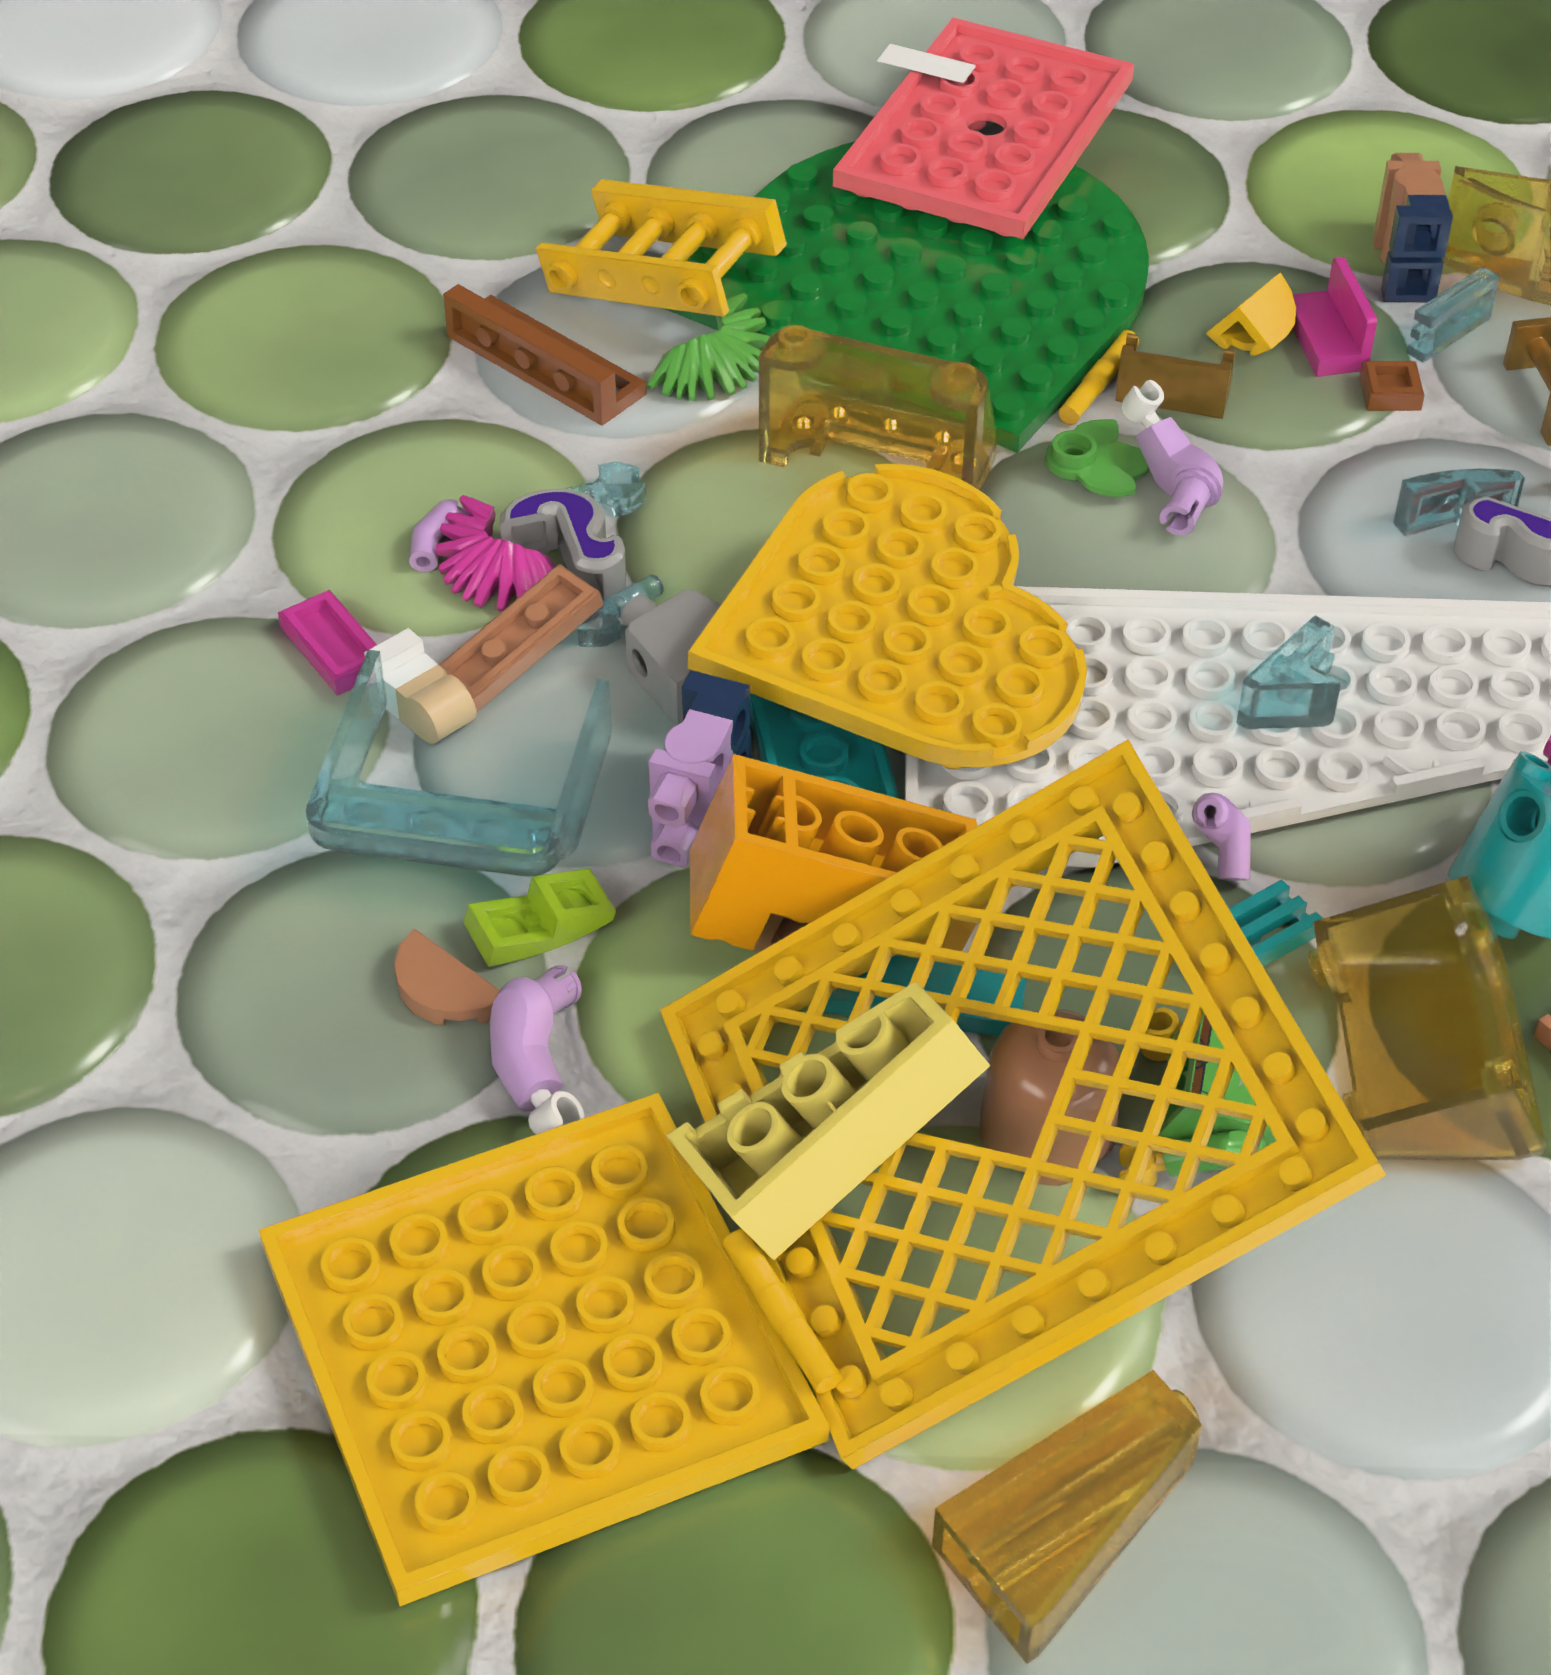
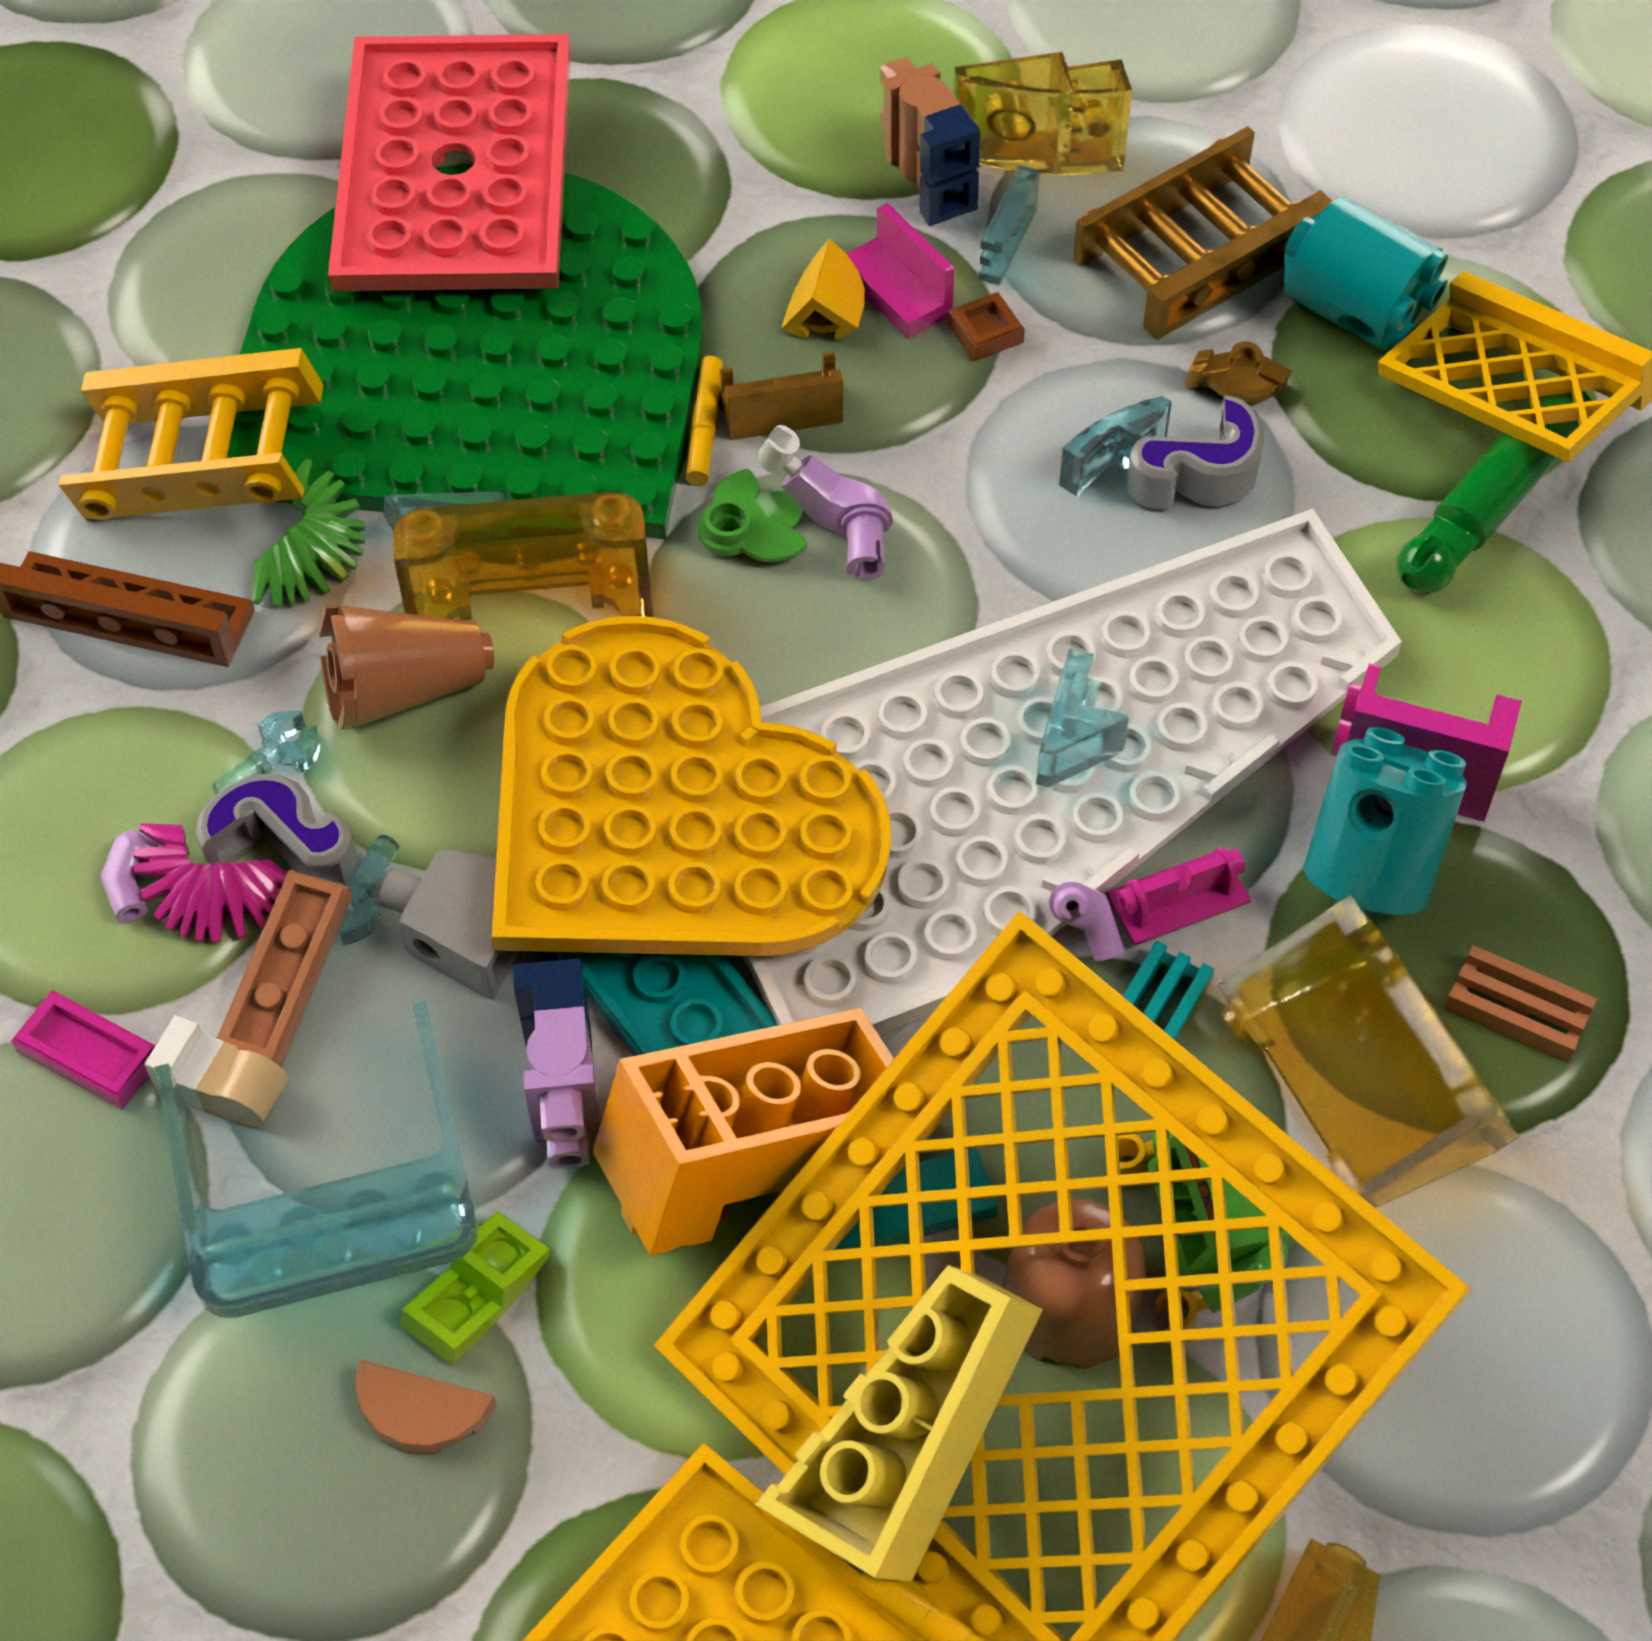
camera: 25 degrees left, 10 degrees up
(520, 1041) = (541, 1454): lavender arm -> none
(735, 453) = (396, 661): none -> nougat cone
(926, 63) = (357, 106): white sticker -> none
(1309, 855) = (1180, 895): none -> dark pink hinge

